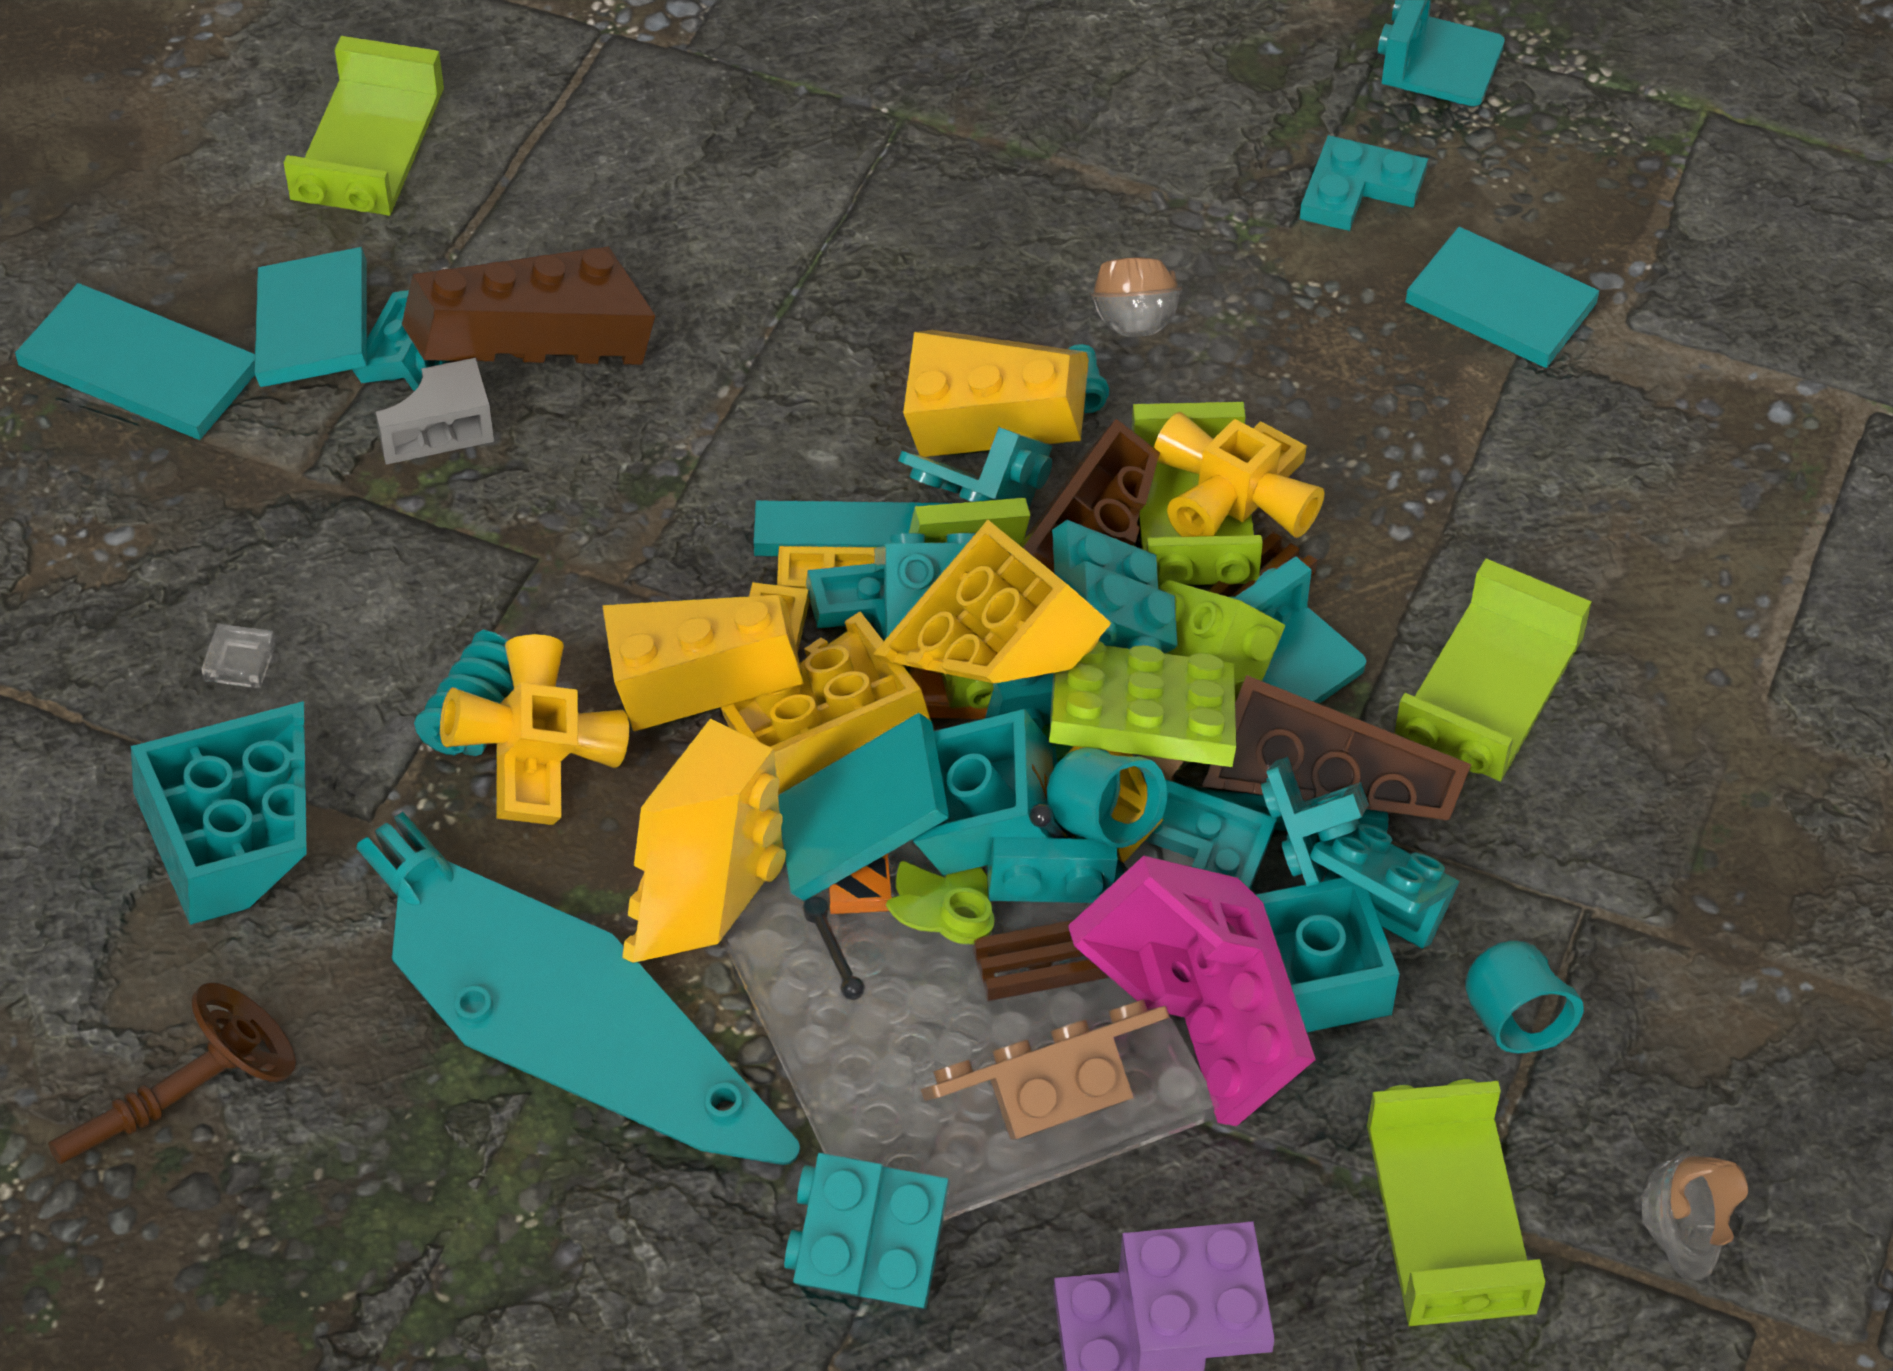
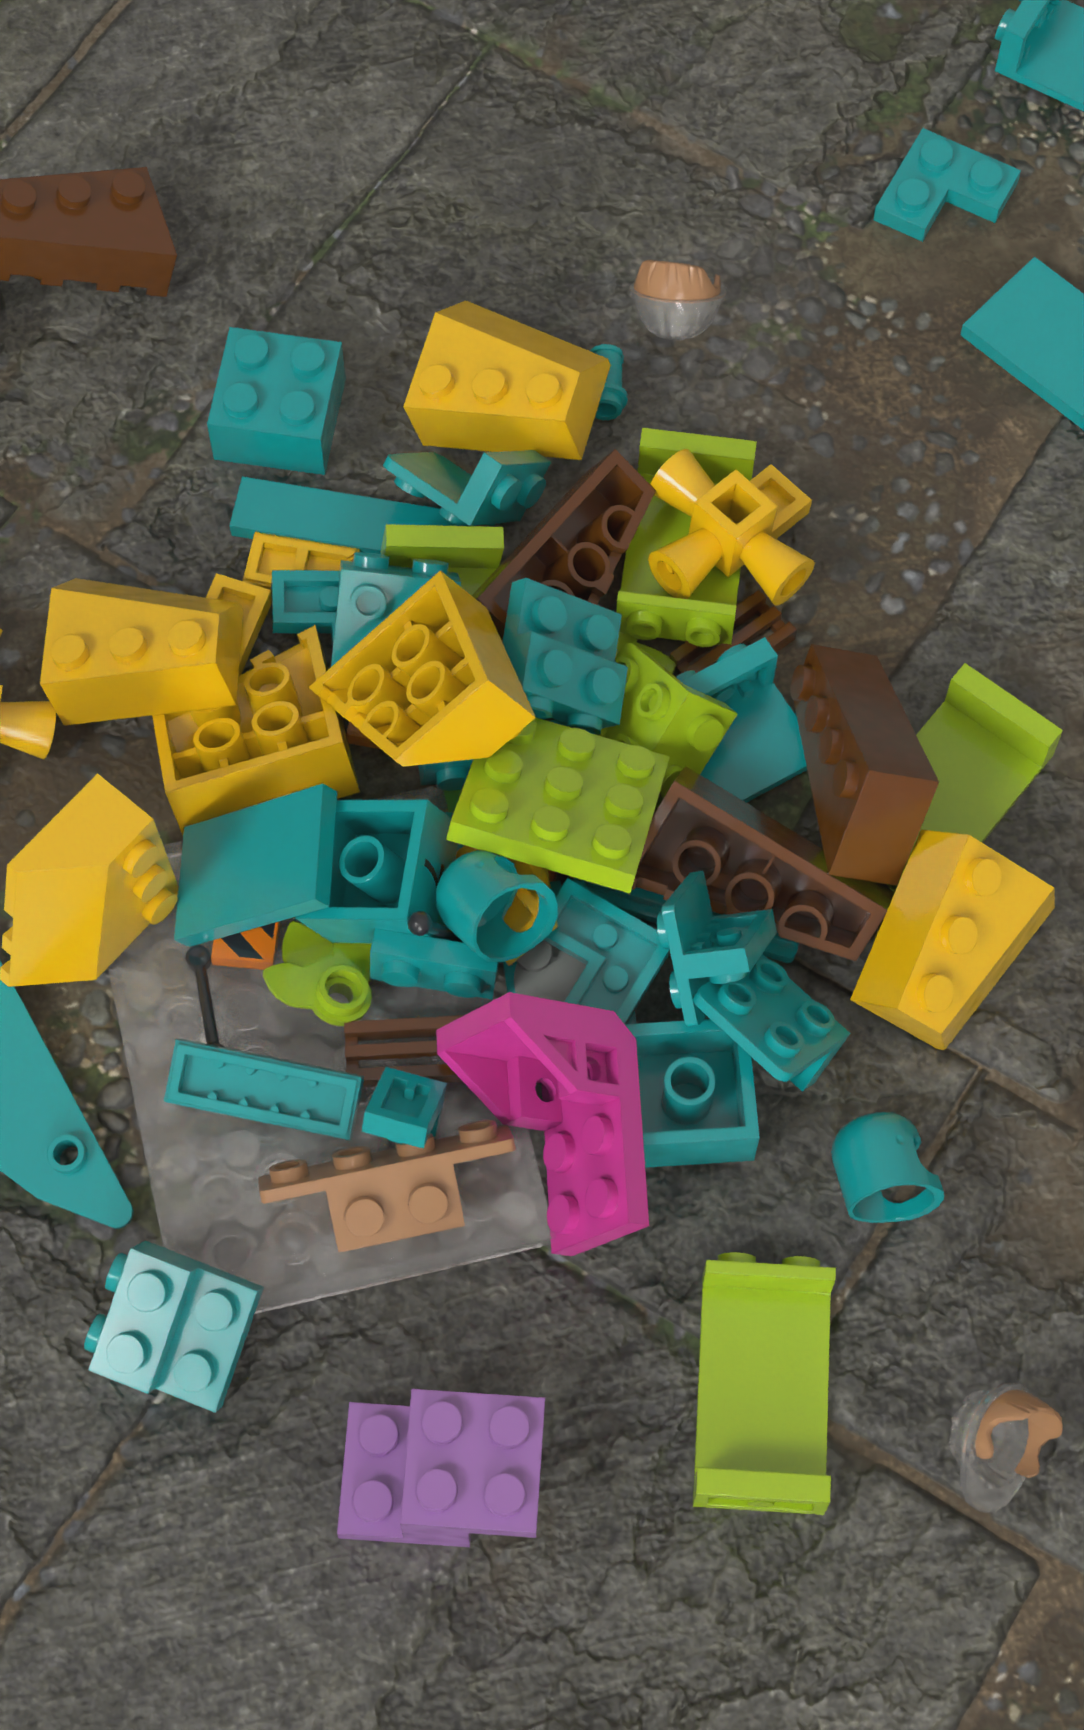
camera: 10 degrees right, 15 degrees up
(776, 431) = (276, 400): none -> teal brick
(910, 1006) = (264, 1089): none -> teal plate
(1053, 996) = (404, 1108): none -> teal bracket
(1415, 647) = (861, 764): none -> reddish brown wedge
(1534, 780) = (949, 935): none -> yellow wedge

